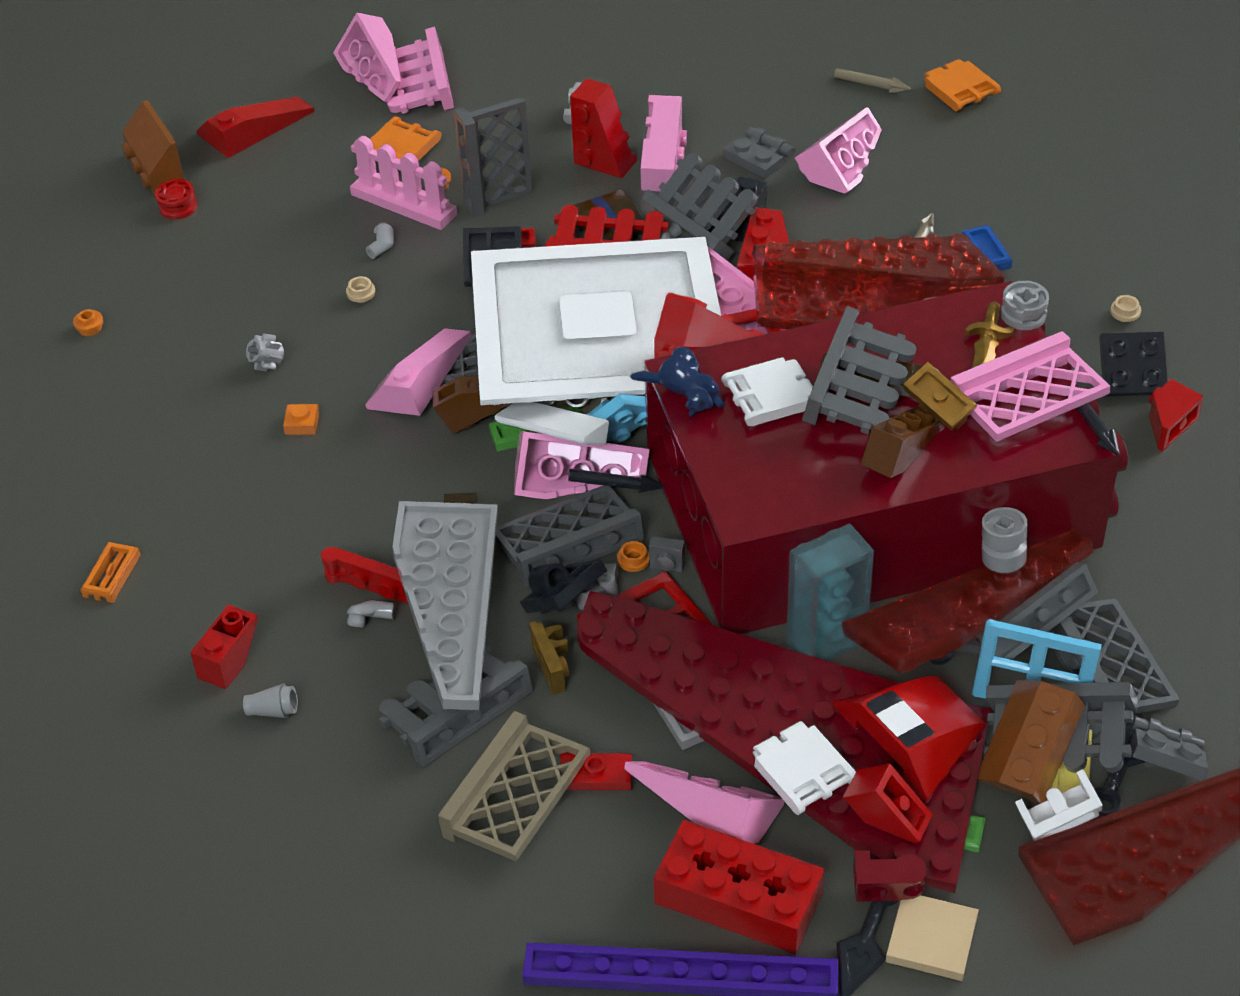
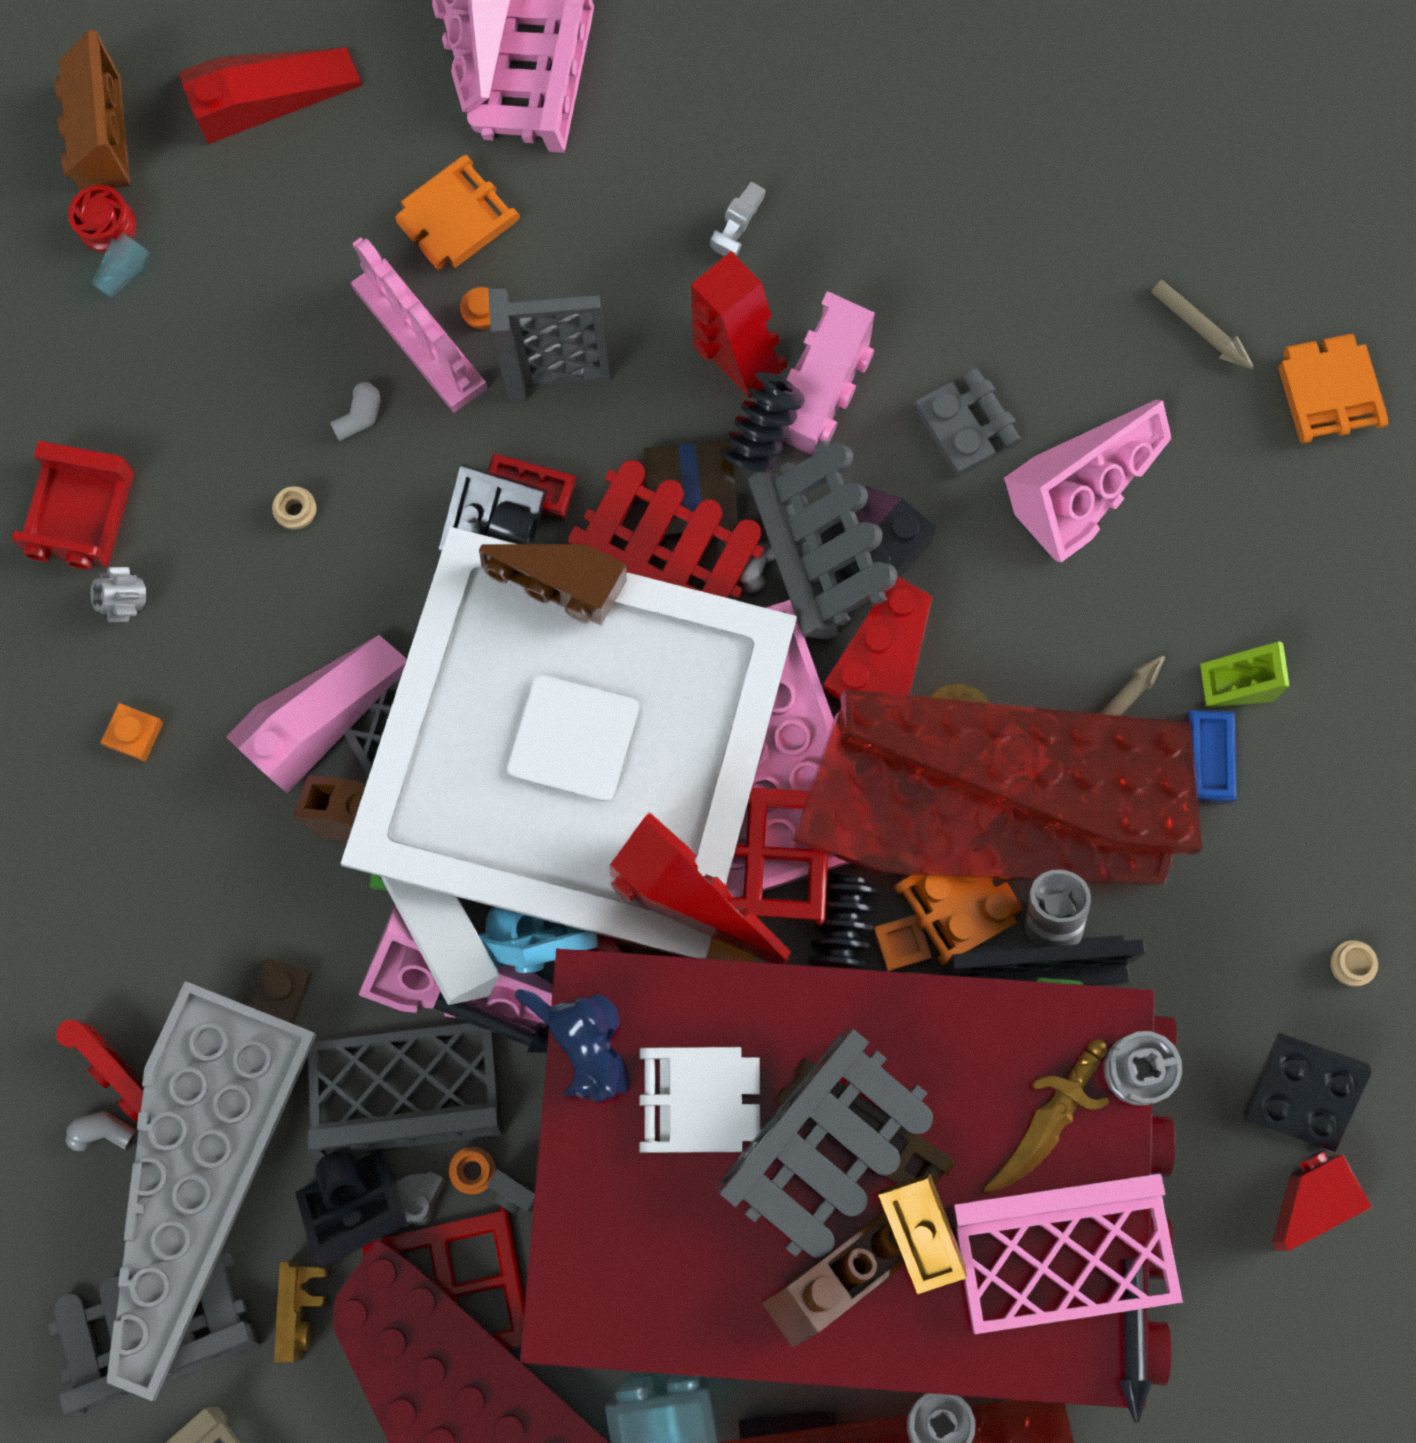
camera: 20 degrees right, 30 degrees up
(198, 213) = (120, 265): none -> clear light blue cone
(215, 323) = (75, 506): none -> red panel
(549, 244) = (566, 574): none -> reddish brown slope
(638, 163) = (766, 425): none -> black piece
(988, 204) = (1246, 677): none -> lime slope

